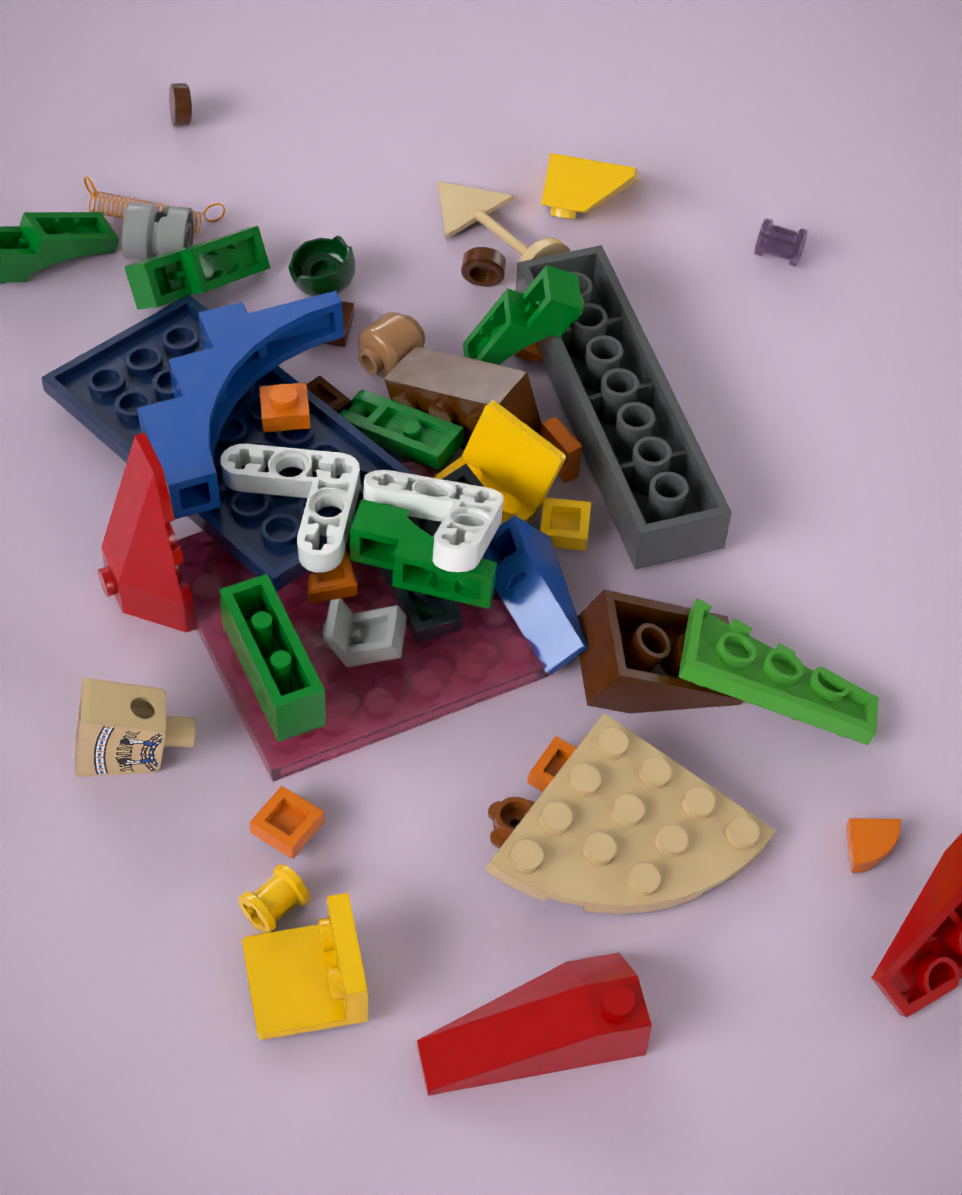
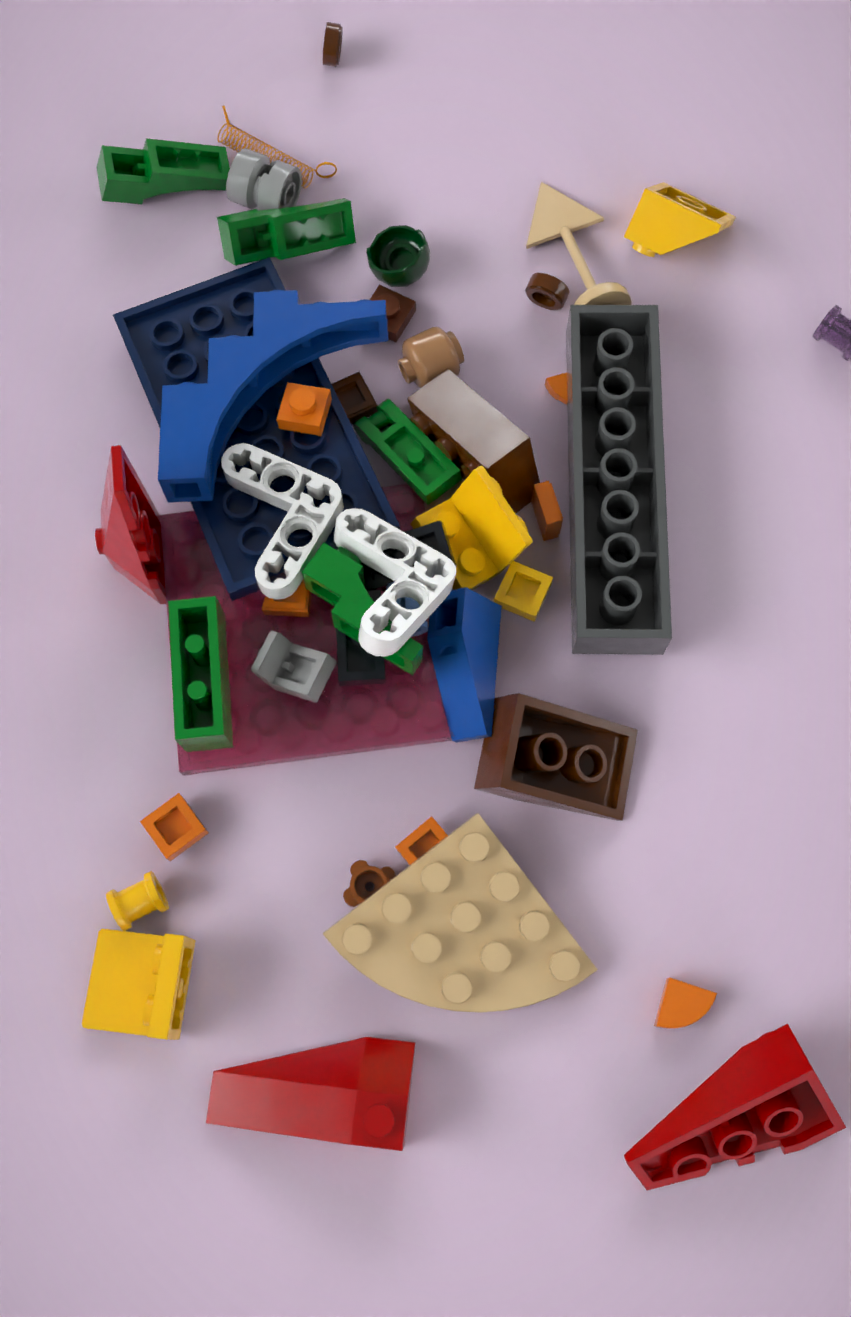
camera: 25 degrees right, 20 degrees up
(125, 729) = (47, 692): tan torso -> none
(526, 317) = (554, 372): green slope -> none
(774, 679) = (636, 806): bright green wing -> none

